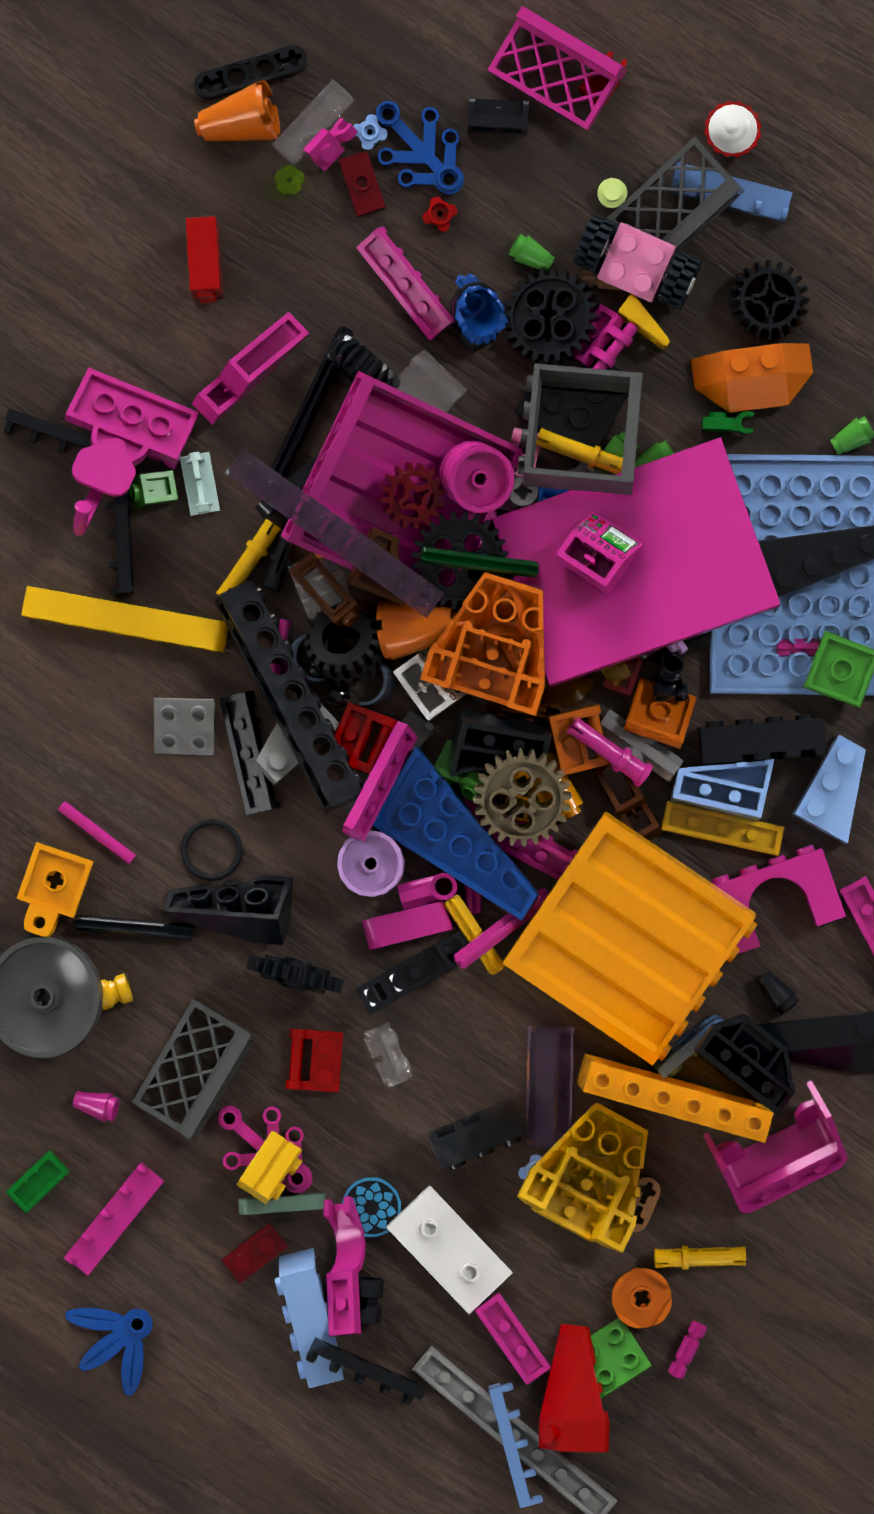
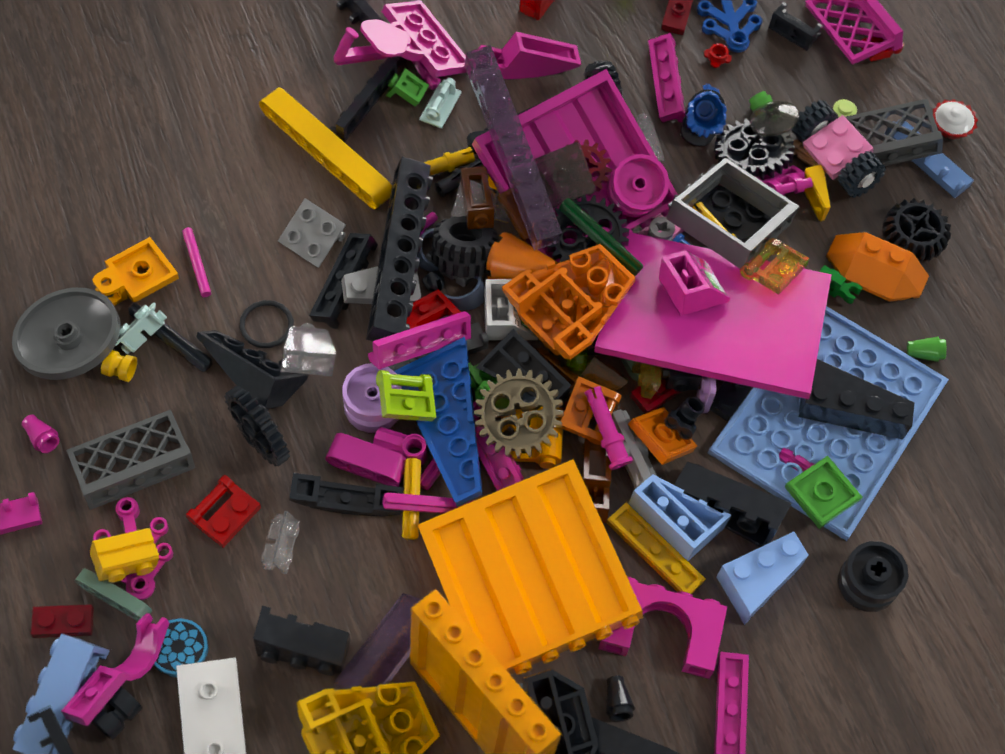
camera: 25 degrees right, 25 degrees down
(103, 932) = (145, 319): none -> light aqua hinge
(278, 858) = (308, 351): none -> clear torso
(402, 525) = (565, 174): none -> clear smoke plate
(414, 858) = (406, 403): none -> lime plate
(563, 273) = (774, 118): none -> clear smoke dish
(671, 472) = (780, 271): none -> clear yellow plate

